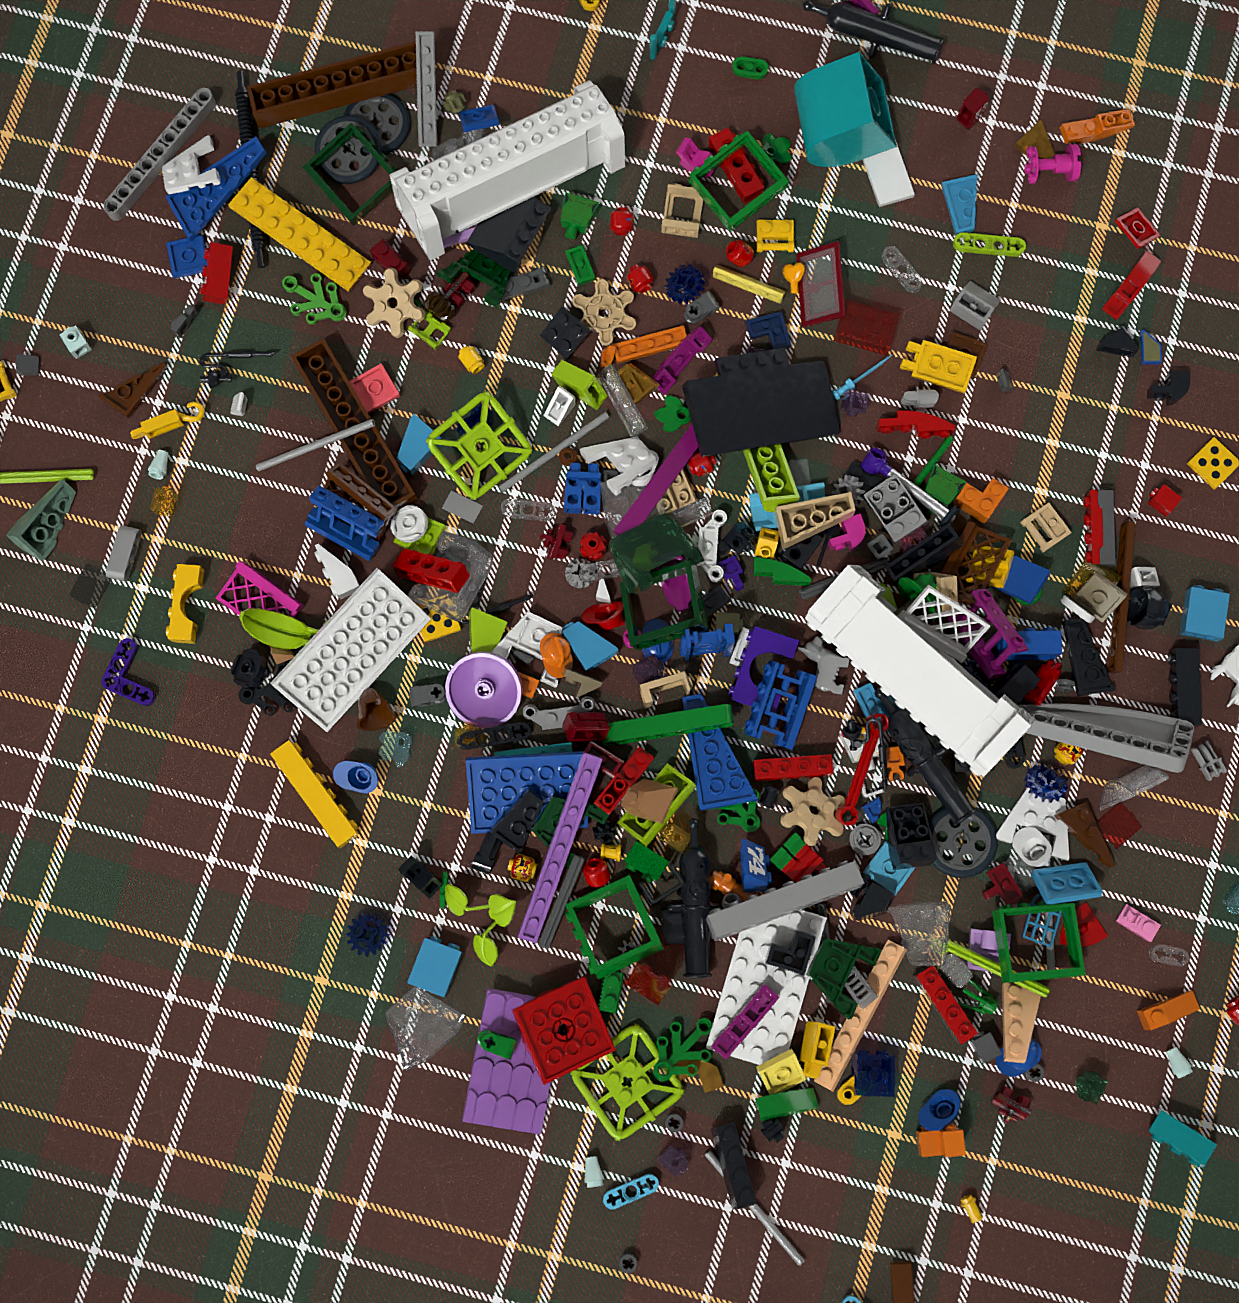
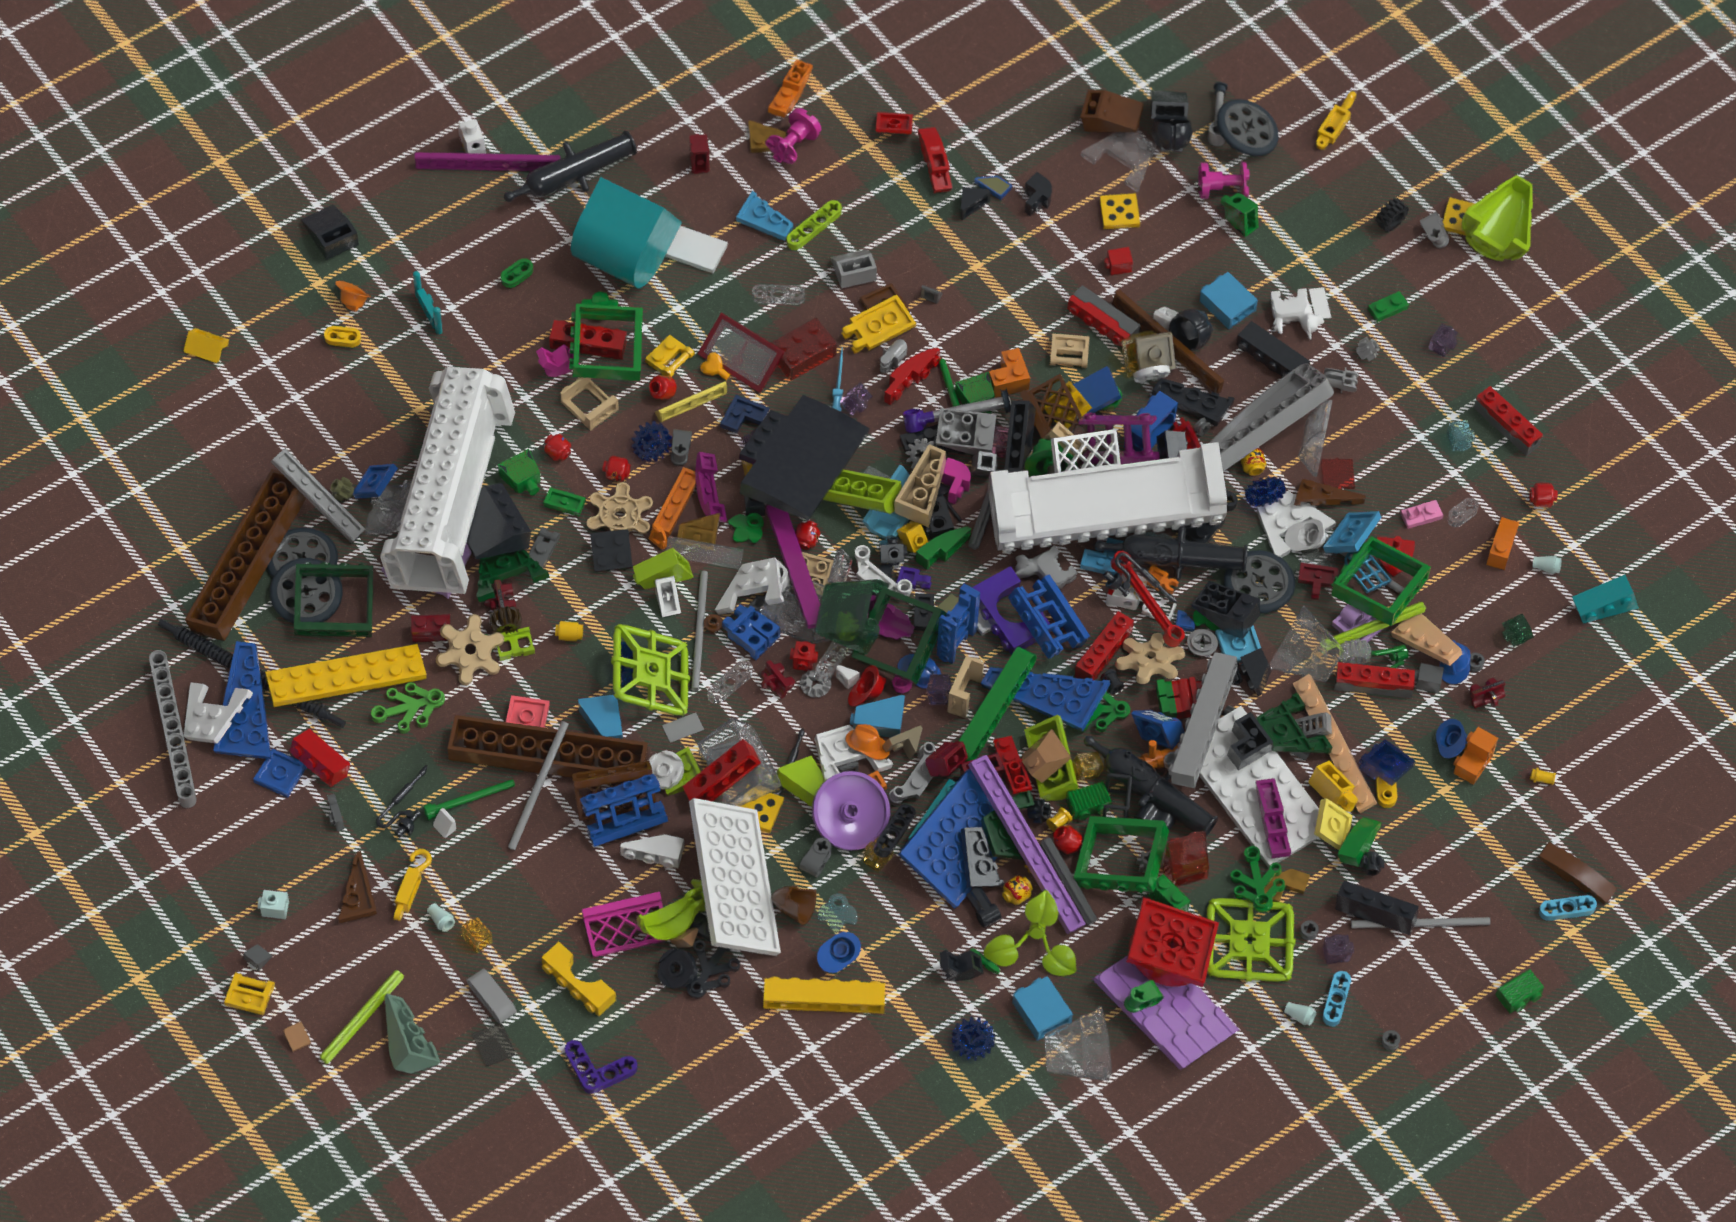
camera: 55 degrees left, 20 degrees down
(241, 385) = (432, 810): none -> green piece

